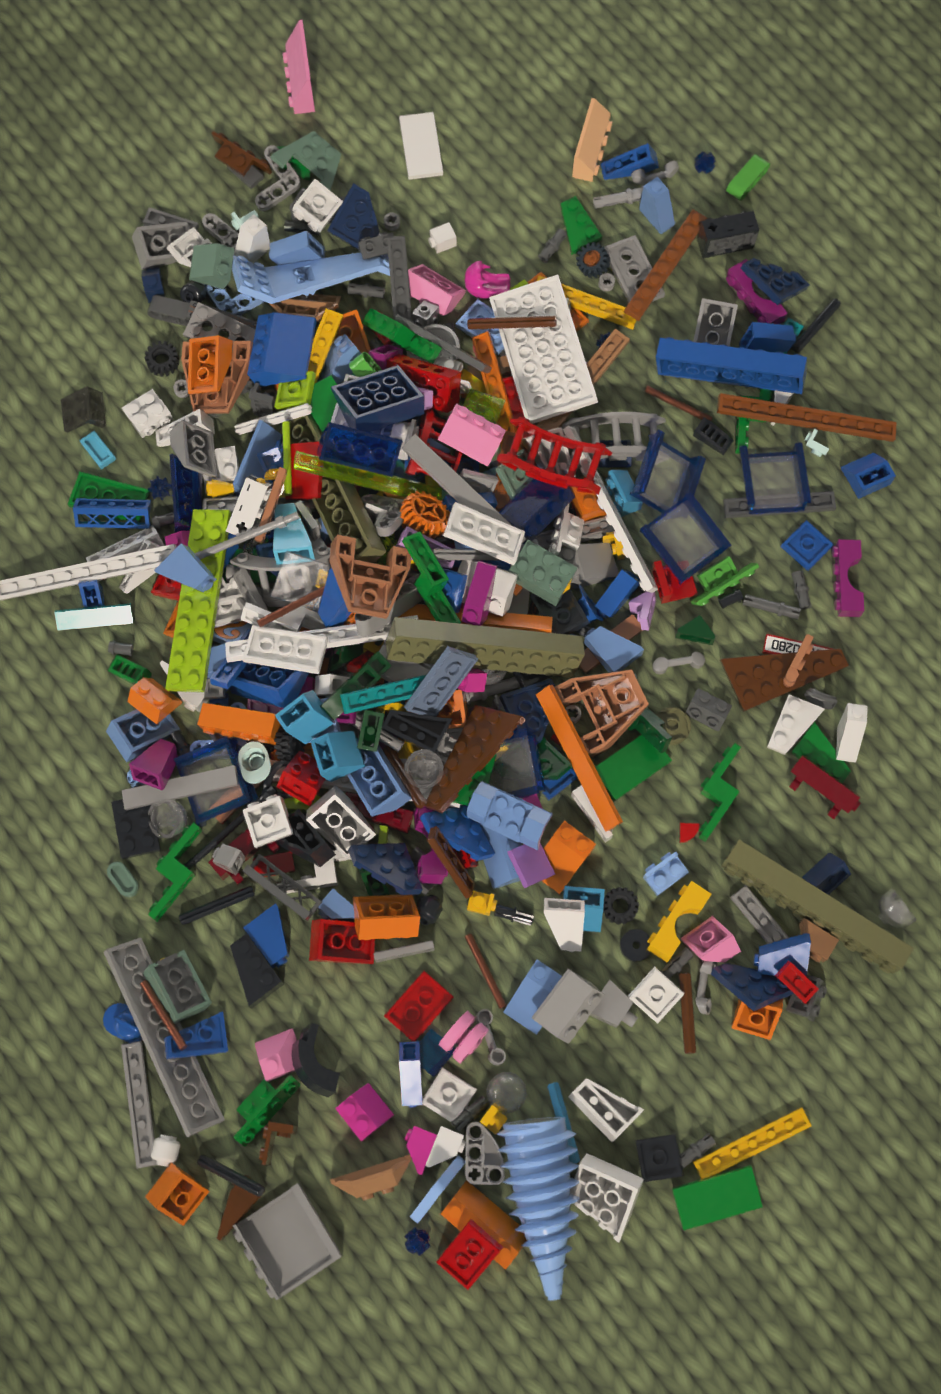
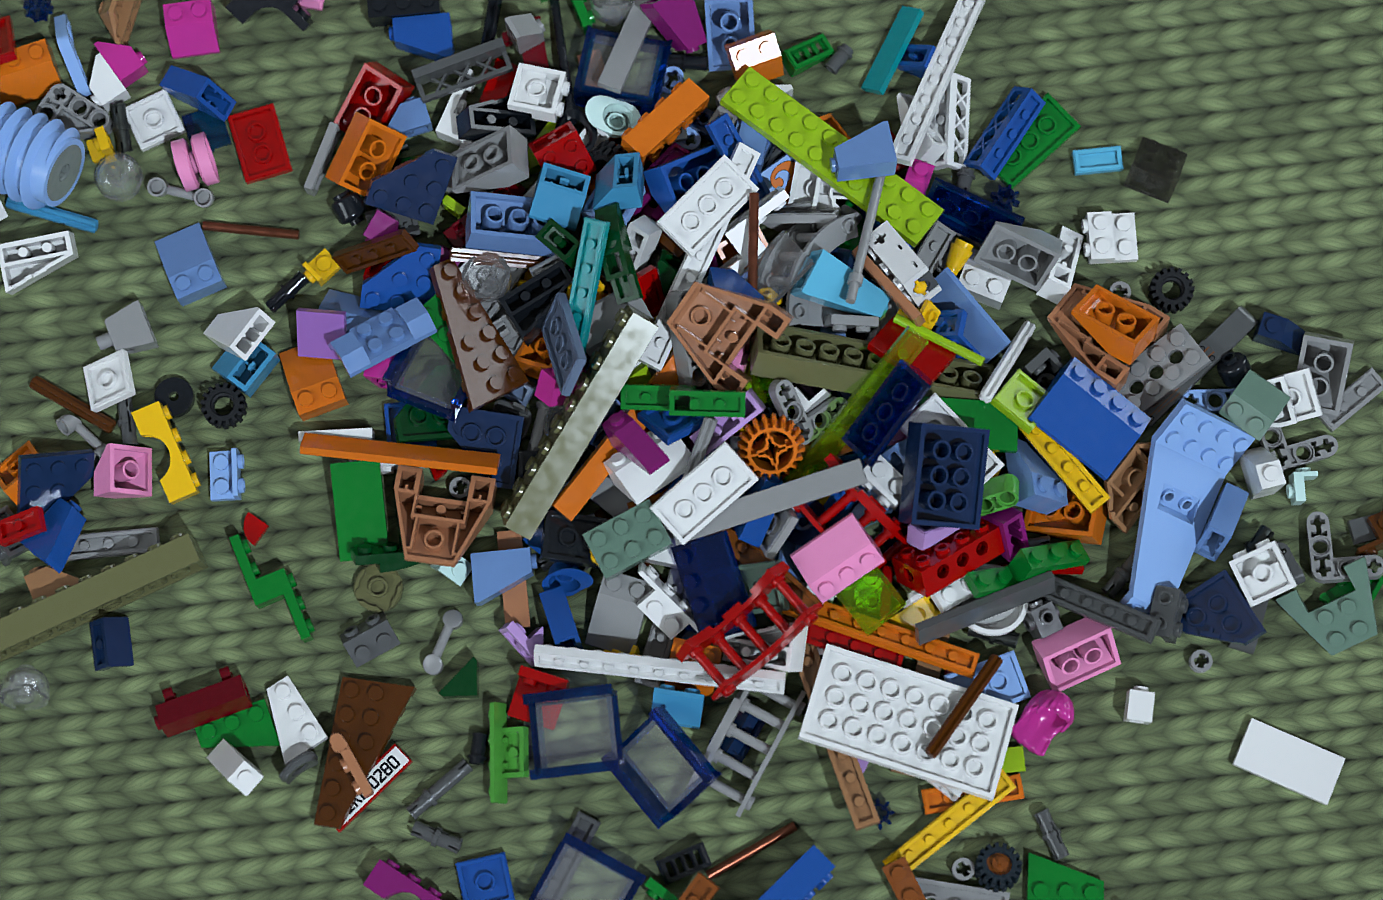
camera: 125 degrees right, 5 degrees up
(568, 1006) = (153, 281): light grey slope -> none

